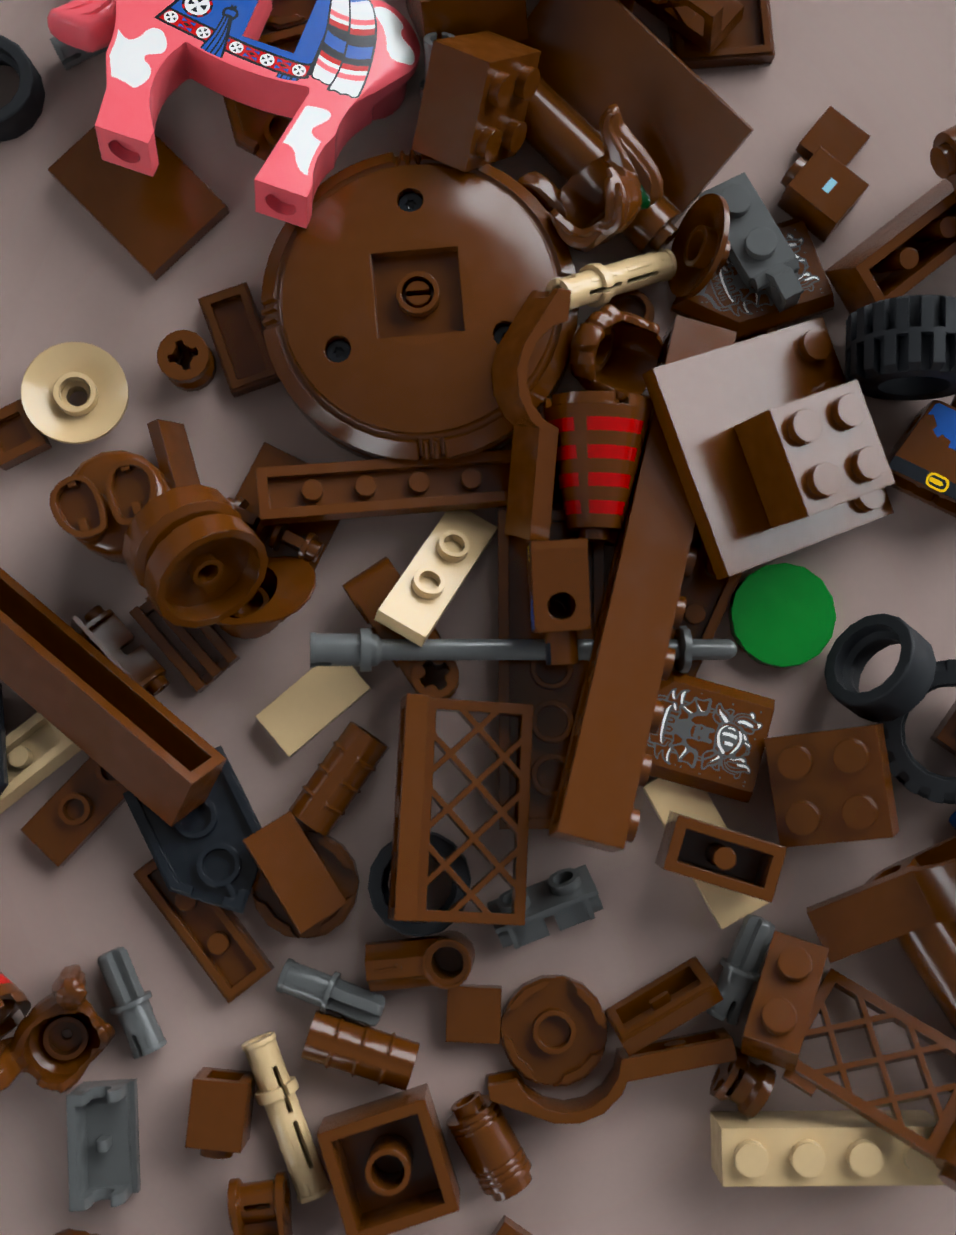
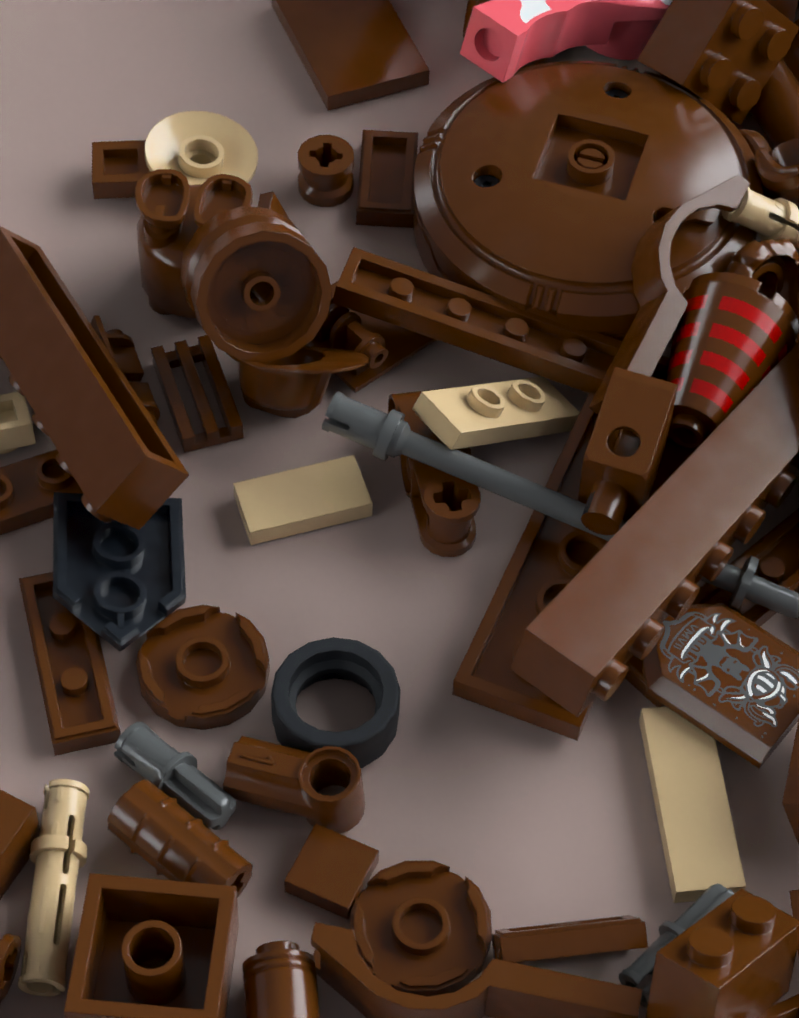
camera: 20 degrees right, 30 degrees down
(294, 872) = (200, 630): reddish brown tile -> none
(338, 778) = (295, 570): reddish brown axle -> none
(414, 803) = (364, 609): reddish brown fence -> none
(565, 894) = (497, 786): dark grey hinge -> none
(721, 856) = (705, 778): reddish brown brick -> none

